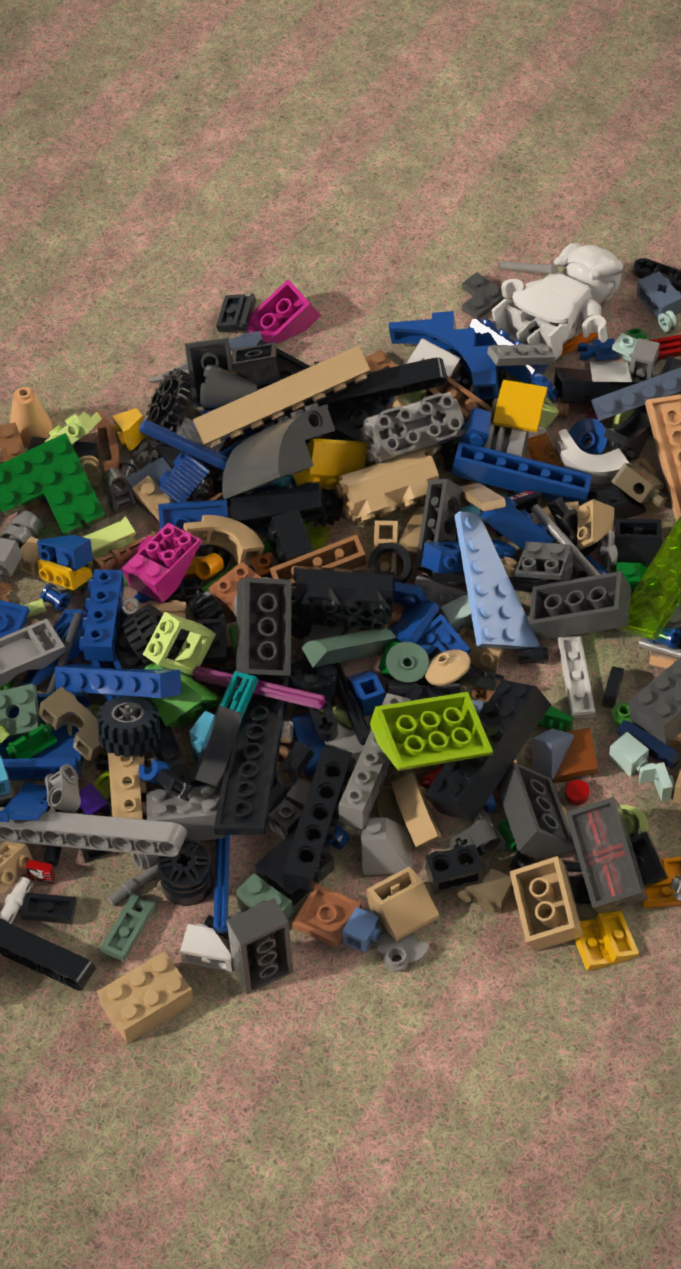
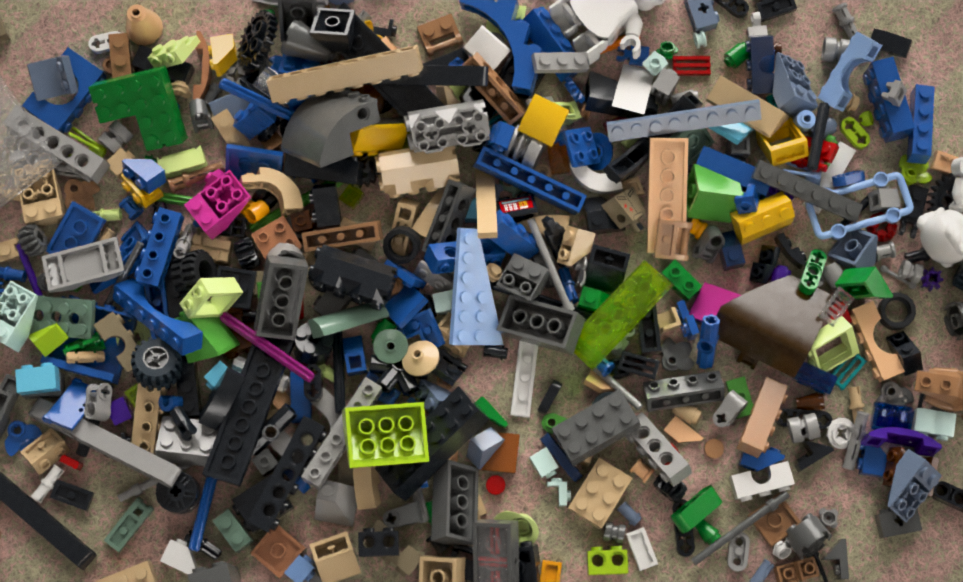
camera: 10 degrees right, 25 degrees up
(35, 751) = (85, 357): none -> tan axle
(242, 695) = (254, 356): teal tile -> none
(567, 429) = (580, 146): none -> blue bracket

